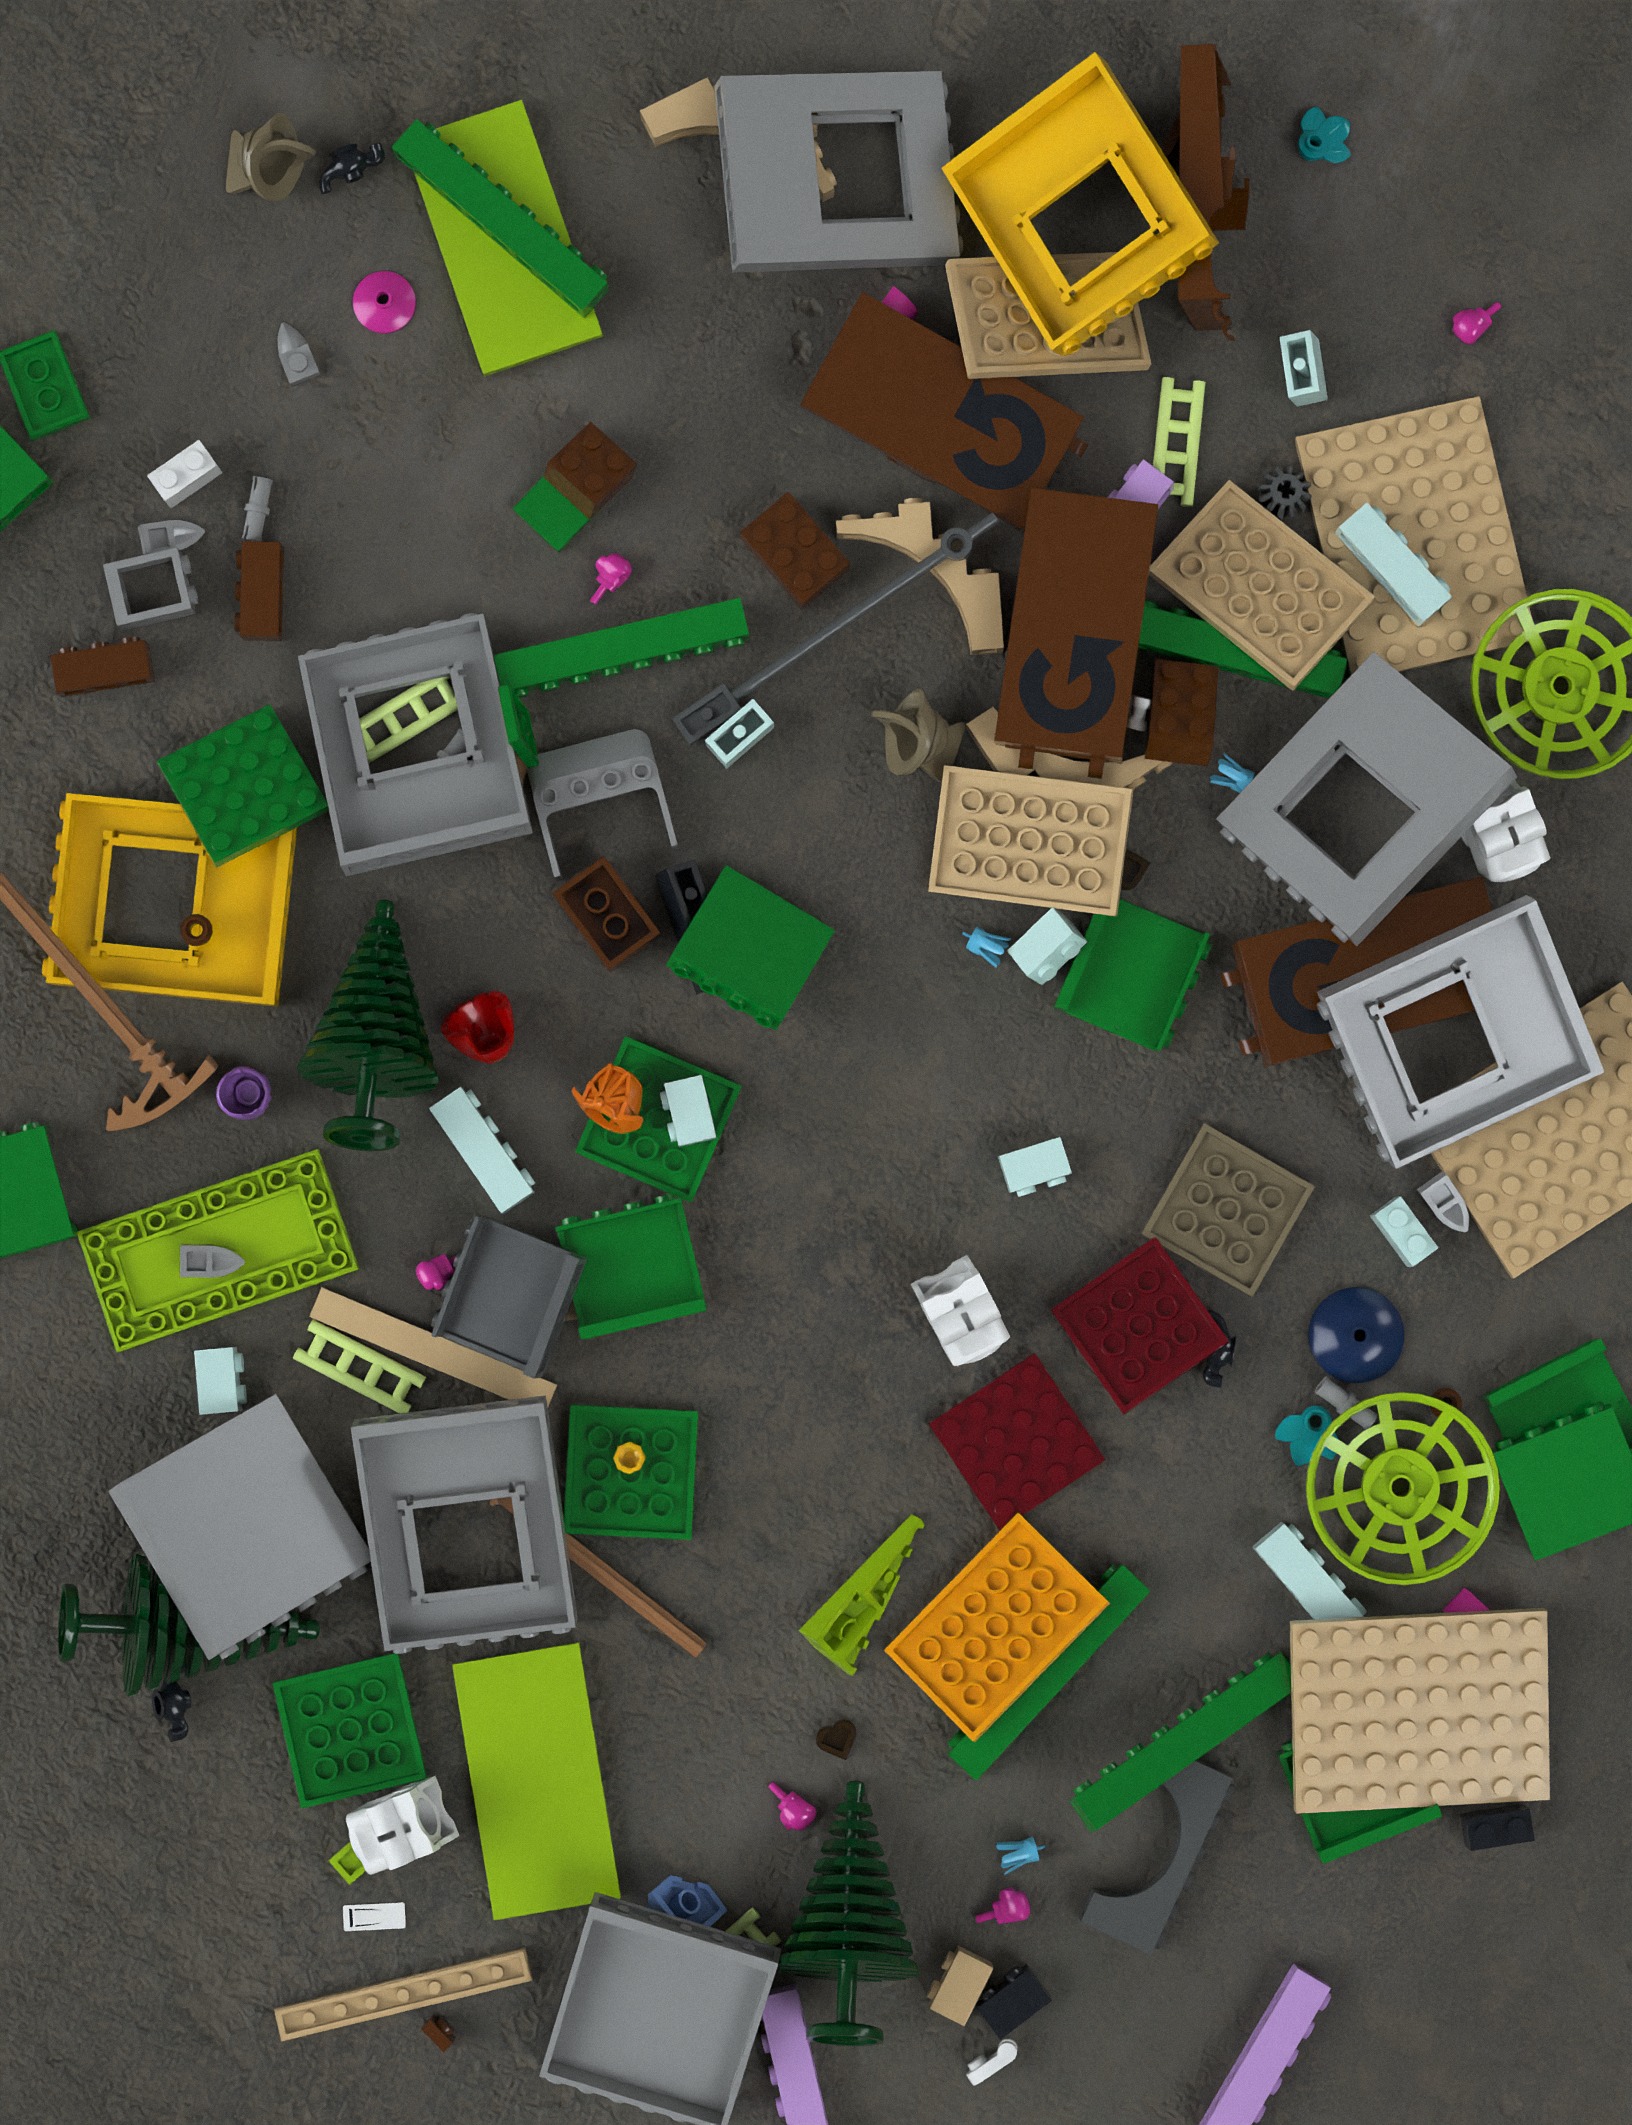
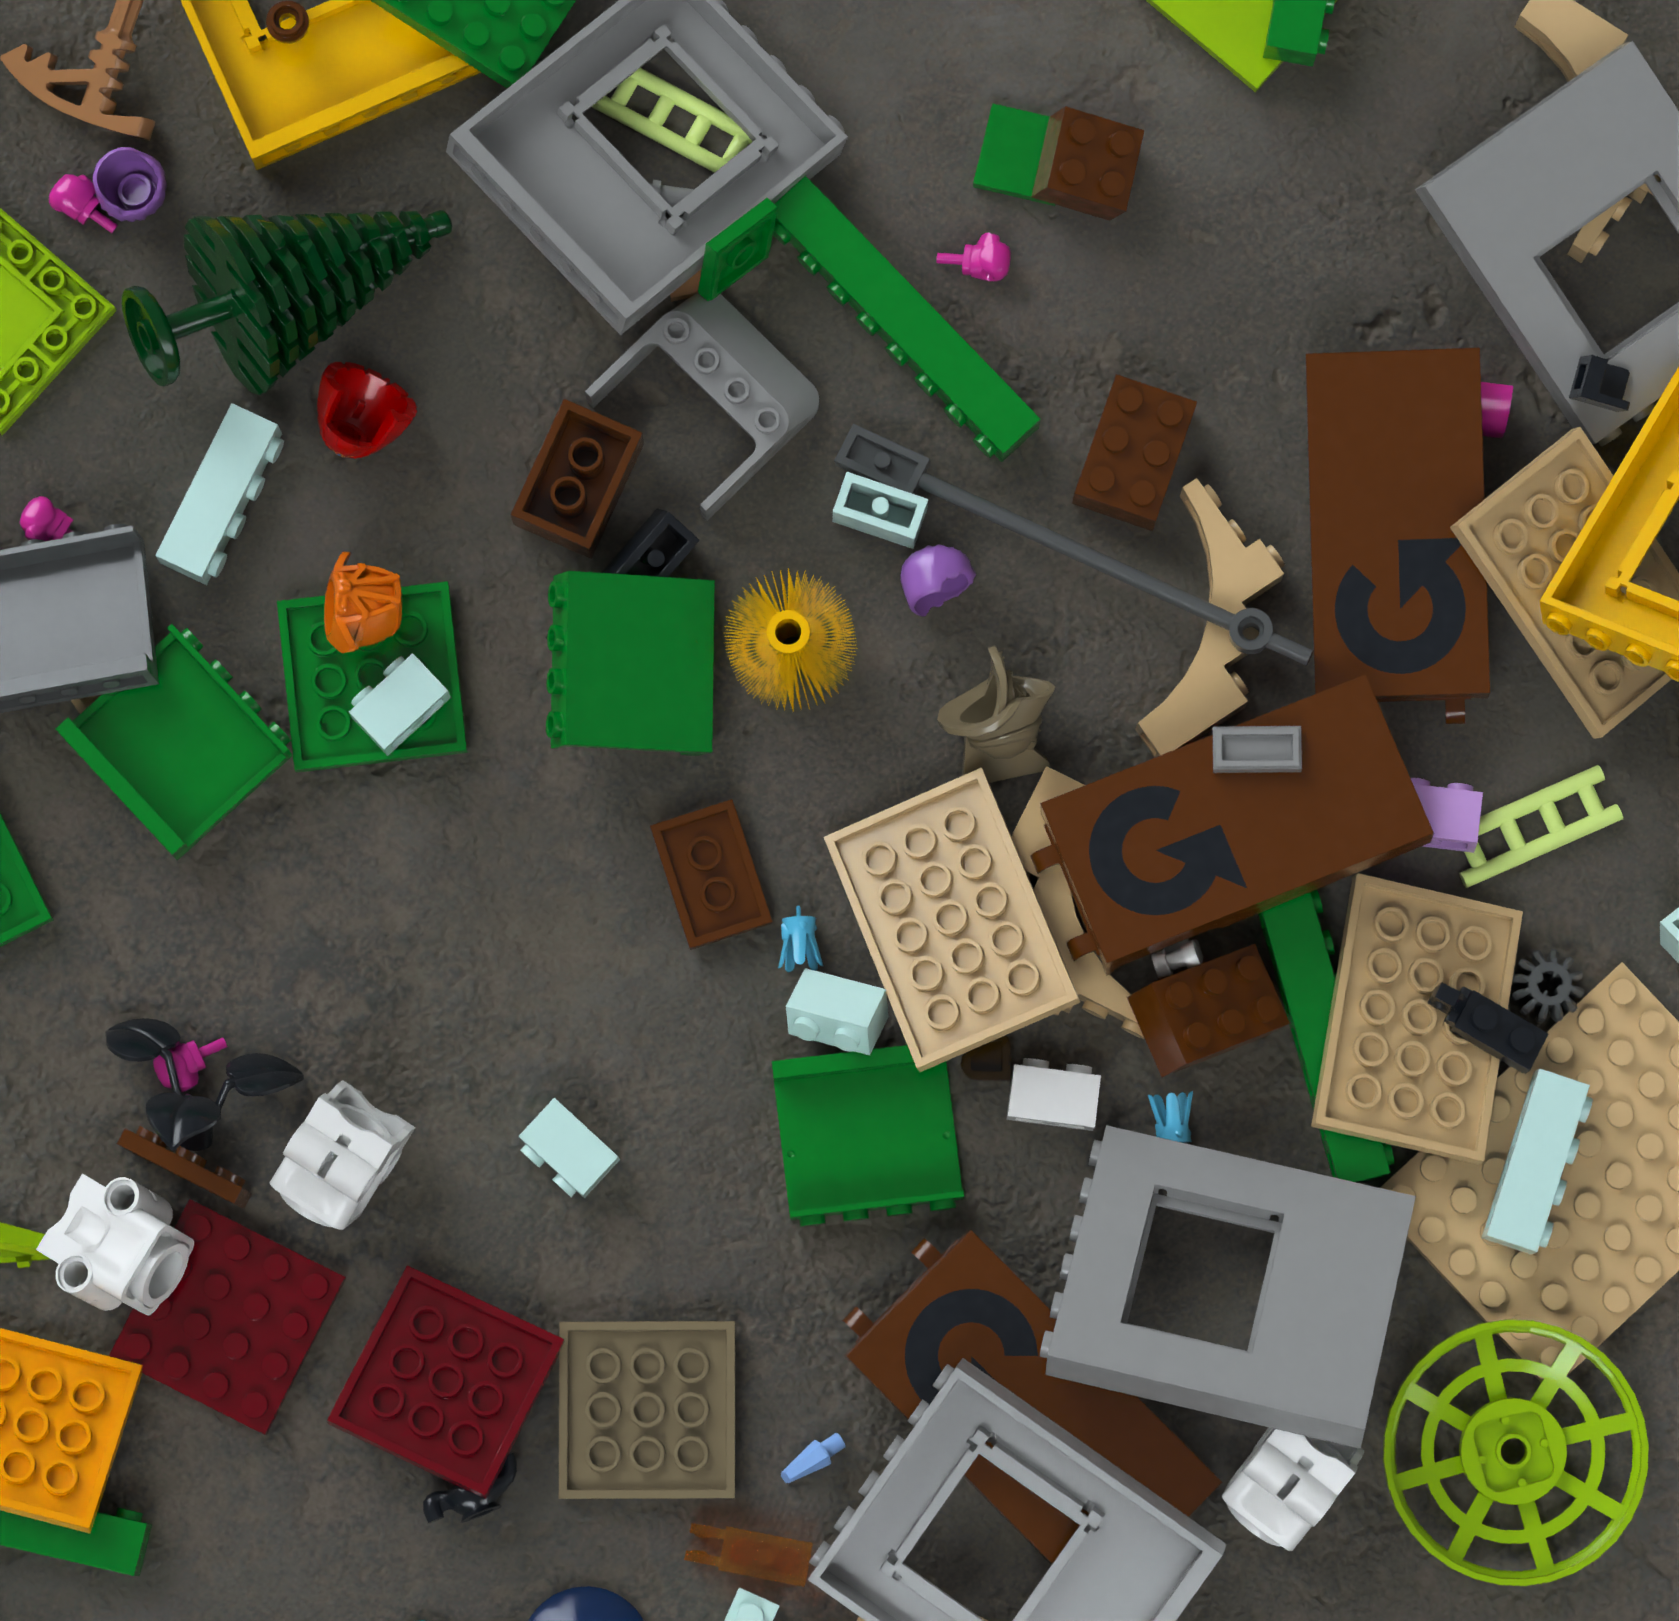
camera: 60 degrees right, 5 degrees down
(232, 1133) = (77, 200): none -> dark pink piece
(773, 835) = (795, 656): none -> yellow piece
(801, 724) = (935, 577): none -> medium lavender hair
(838, 1381) = (187, 1061): none -> dark pink piece
(883, 1393) = (189, 1119): none -> black plant
(909, 1413) = (186, 1165): none -> reddish brown plate
(911, 976) = (711, 874): none -> reddish brown plate
(925, 230) = (1600, 384): none -> black panel
(937, 1483) = (117, 1246): none -> white piece
(1040, 583) = (1257, 749): none -> light grey tile
(1177, 841) = (1054, 1095): none -> white brick
(1292, 542) = (1489, 1026): none -> black hinge
(1316, 1123) = (813, 1458): none -> light blue bar
(1356, 1194) = (755, 1554): none -> clear orange hinge

